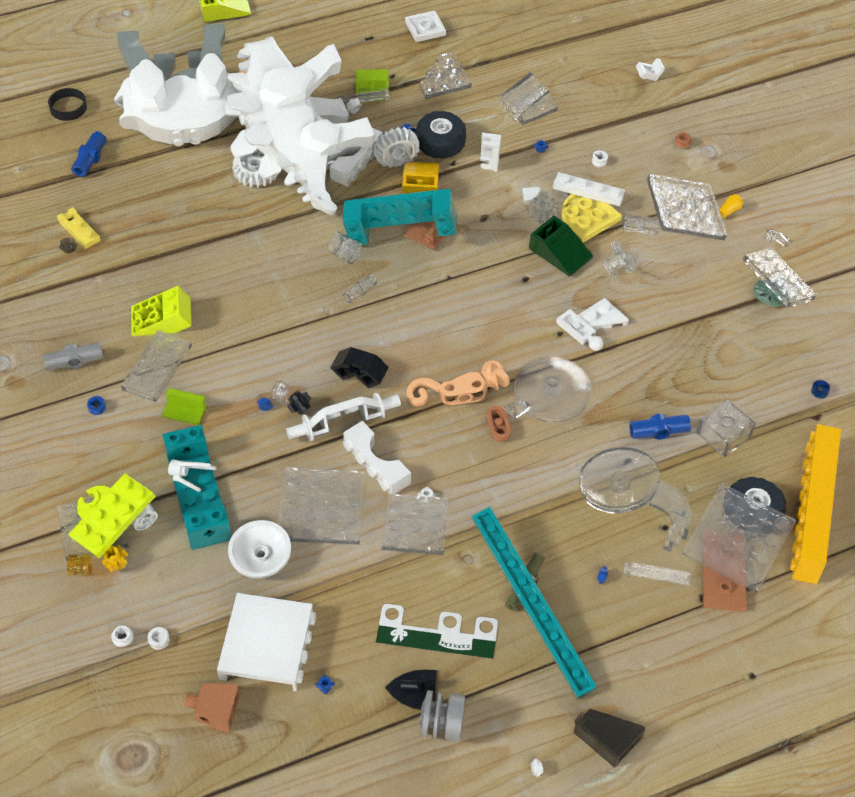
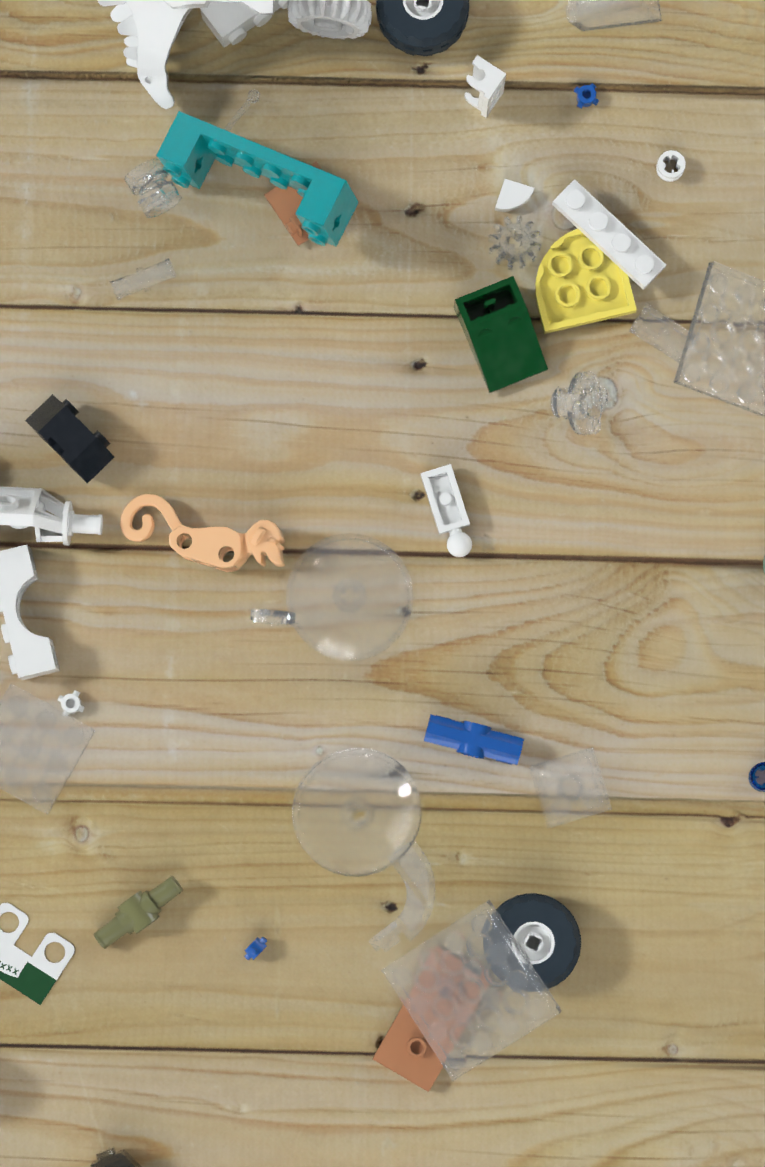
camera: 25 degrees right, 30 degrees up
(420, 177) = (343, 91): yellow slope -> none
(498, 425) = (233, 628): nougat plate -> none
(534, 603) = (125, 956): teal plate -> none
(603, 315) = (499, 492): white wing -> none
(656, 573) = (333, 980): clear axle -> none
(816, 504) = (624, 979): yellow brick -> none

